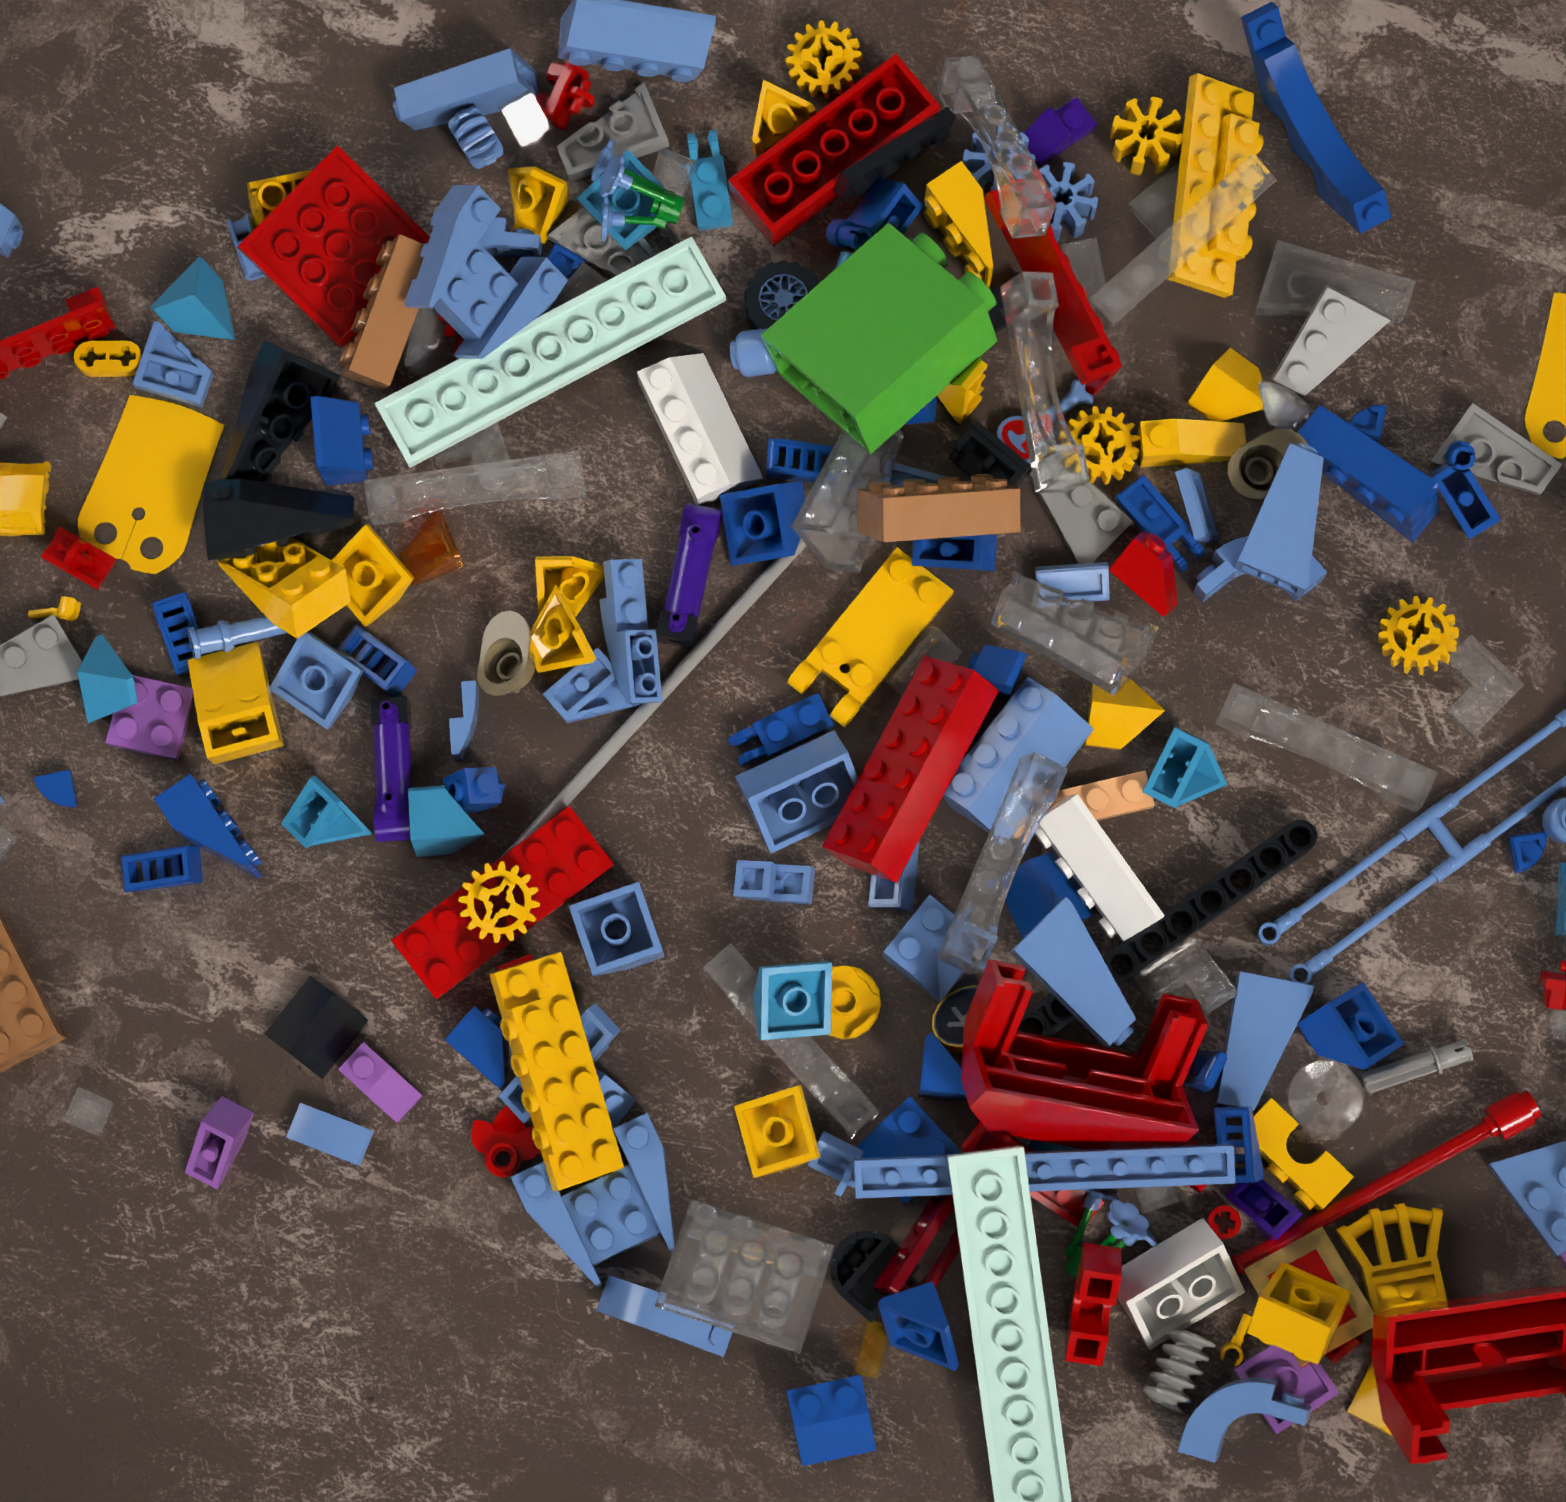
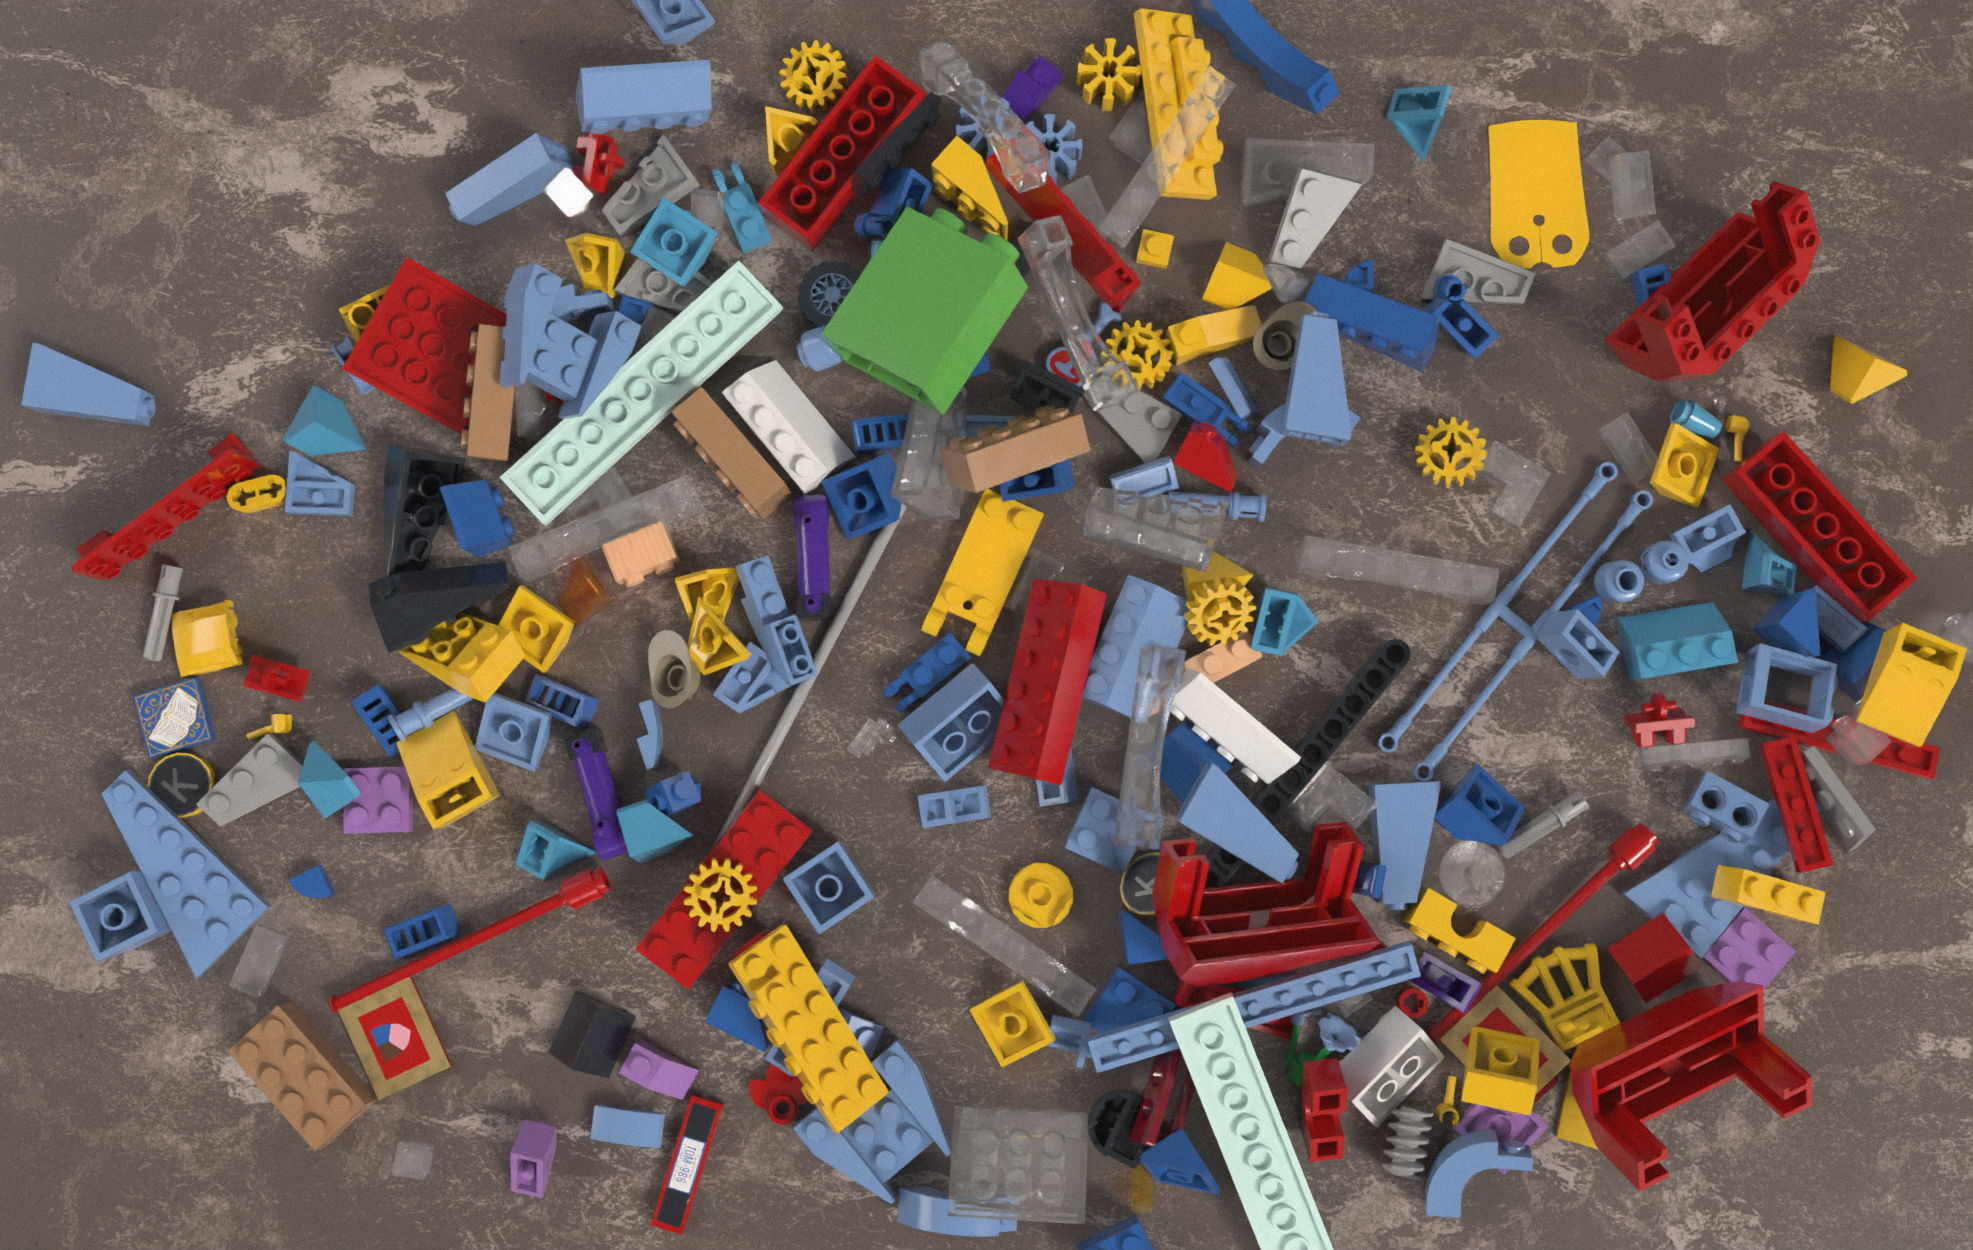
camera: 15 degrees left, 5 degrees up
(103, 952) = (388, 1013): none -> flag
(152, 464) = (324, 576): yellow piece -> none
(195, 816) = (440, 882): blue slope -> none
(383, 1193) = (687, 1164): none -> tile
(475, 137) = (528, 219): medium blue gear -> none
(504, 525) = (641, 554): none -> light nougat brick
(629, 437) = (725, 446): none -> medium nougat brick
(665, 203) = (707, 236): plant -> none
(696, 782) = (865, 738): none -> clear bracket
(793, 1000) = (998, 910): dark azure slope -> none
(963, 393) = (1010, 338): yellow slope -> none
(999, 667) = (1099, 573): blue slope -> none
(1113, 737) = (1219, 611): none -> yellow gear
(1149, 336) = (1154, 249): none -> yellow plate
(1168, 634) = (1239, 505): none -> medium blue pin
(1252, 1156) = (1428, 956): blue slope -> none
(1475, 260) = (1417, 114): none -> dark azure slope
(1504, 876) = (1577, 644): none -> medium blue brick
(1505, 1242) = (1654, 957): none -> red slope

